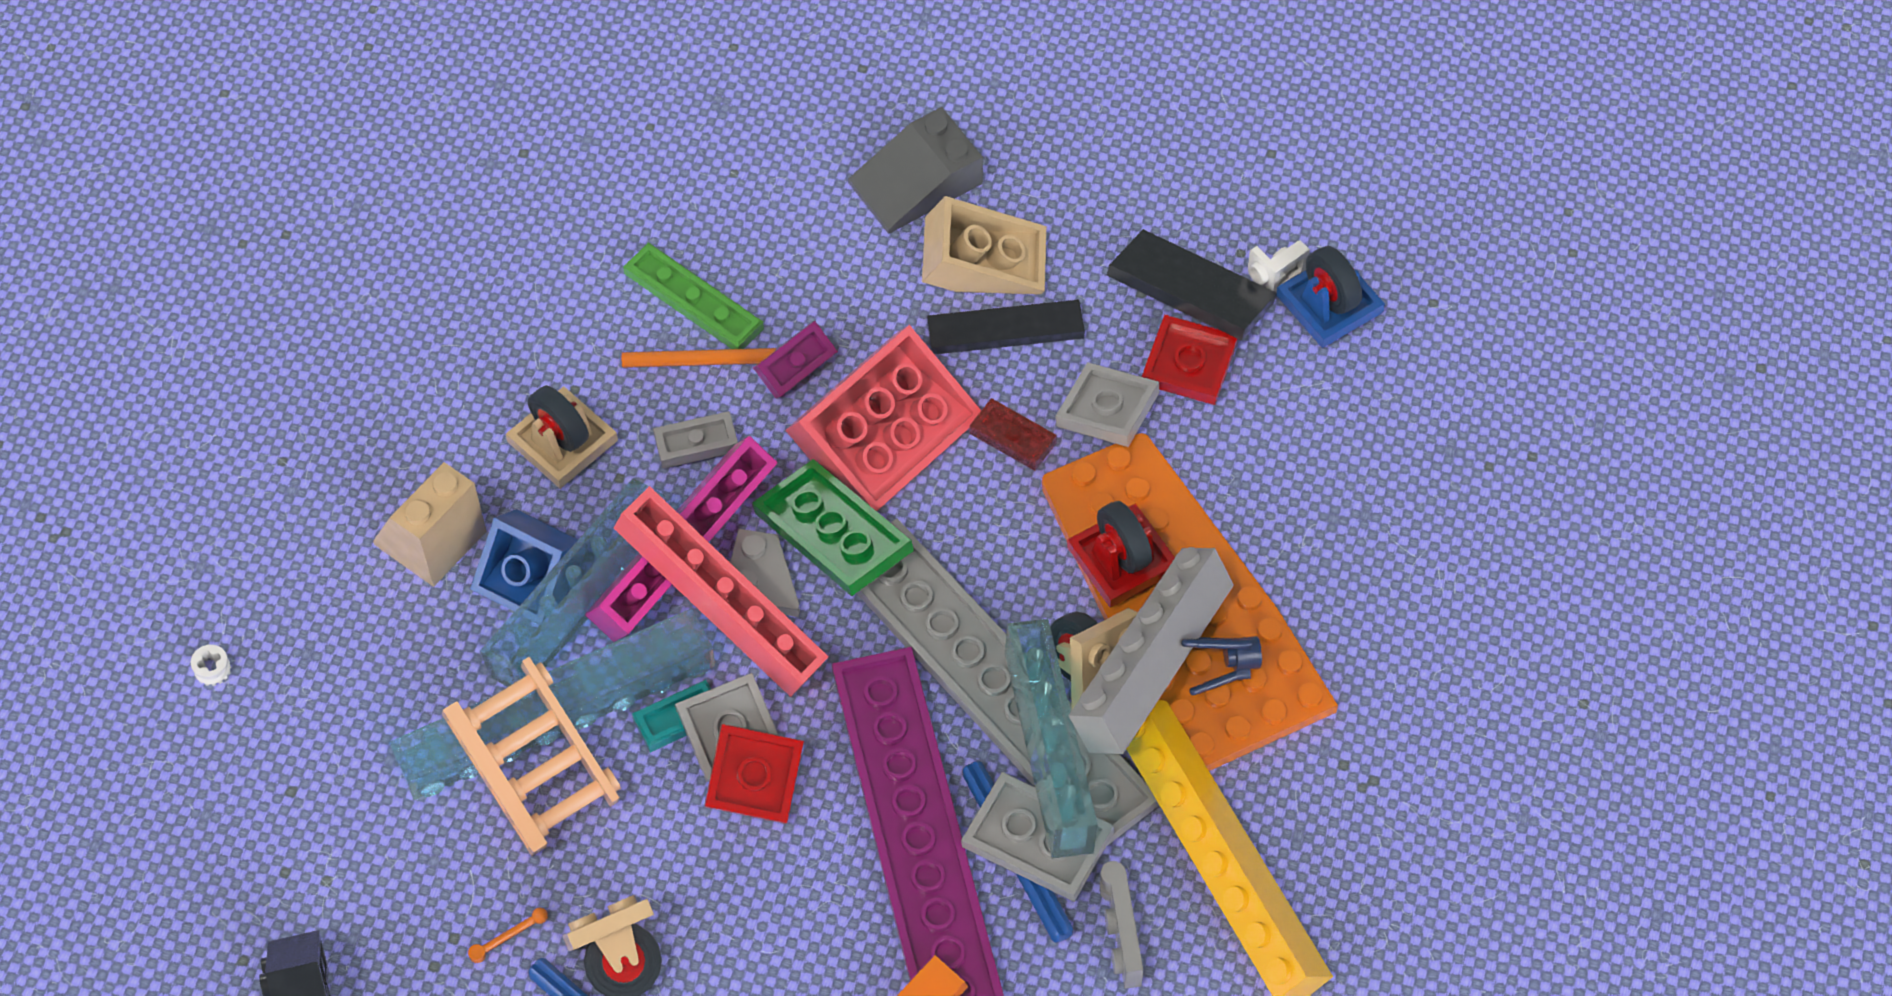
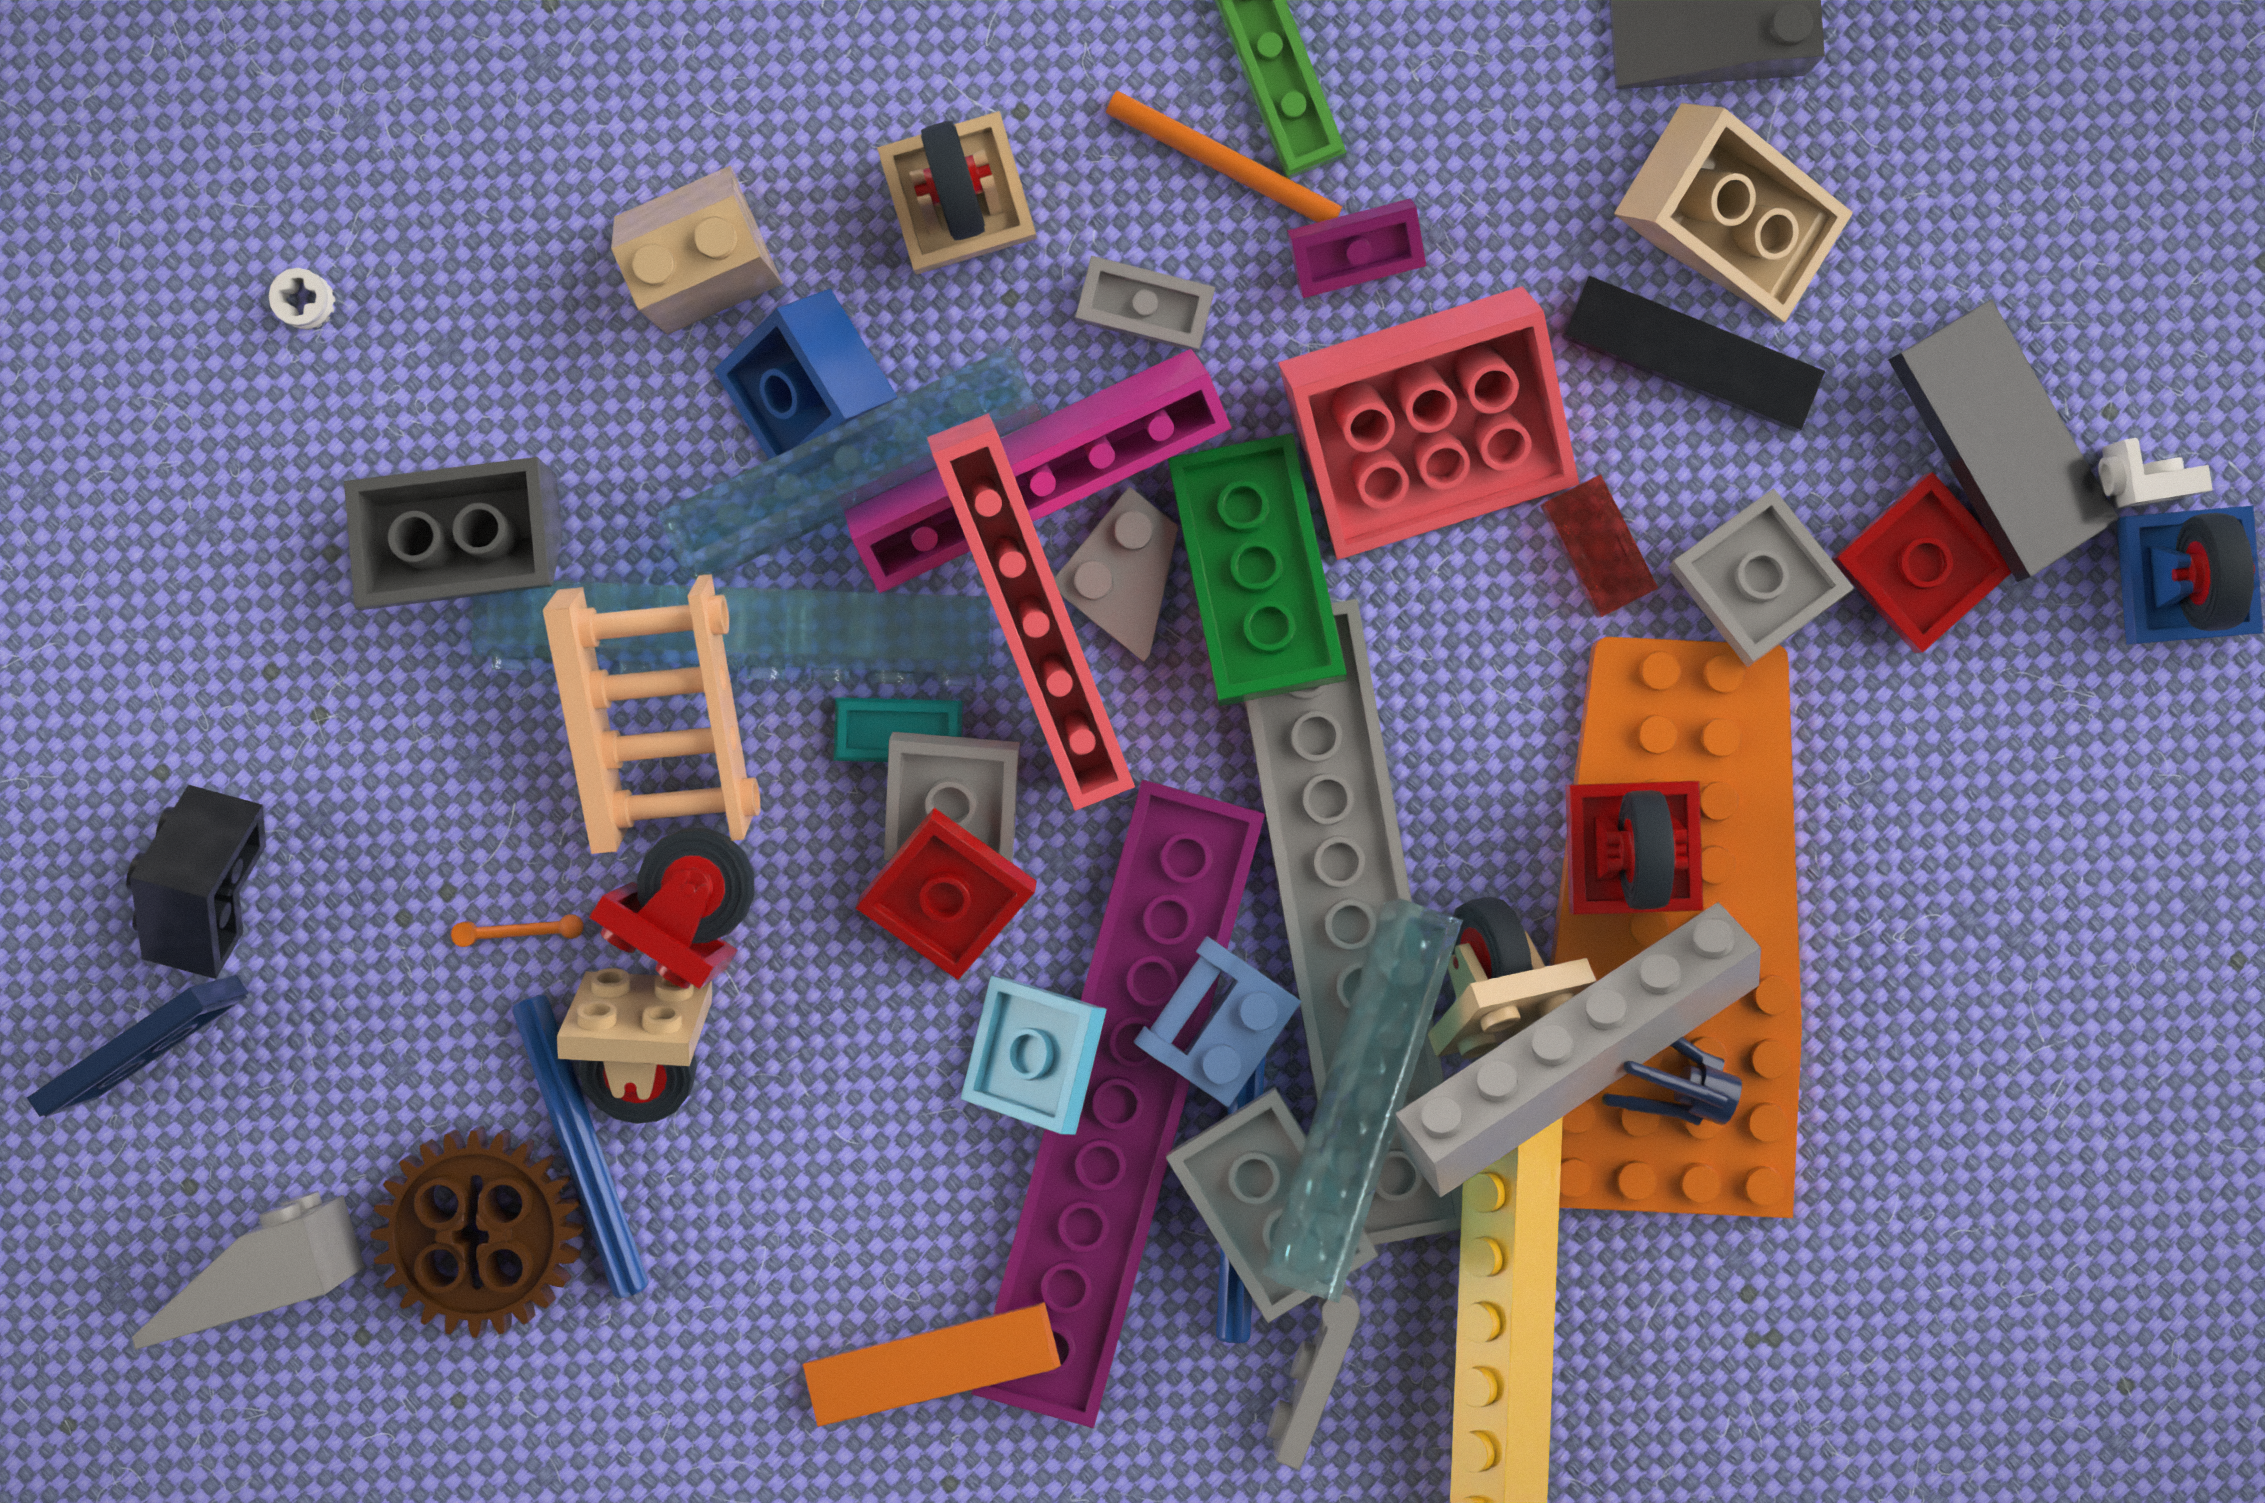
camera: 30 degrees right, 30 degrees up
(361, 720) = (453, 532): none -> dark grey slope
(602, 852) = (684, 901): none -> plate
(853, 832) = (1033, 1055): none -> medium azure plate
(962, 760) = (1233, 1034): none -> medium blue plate

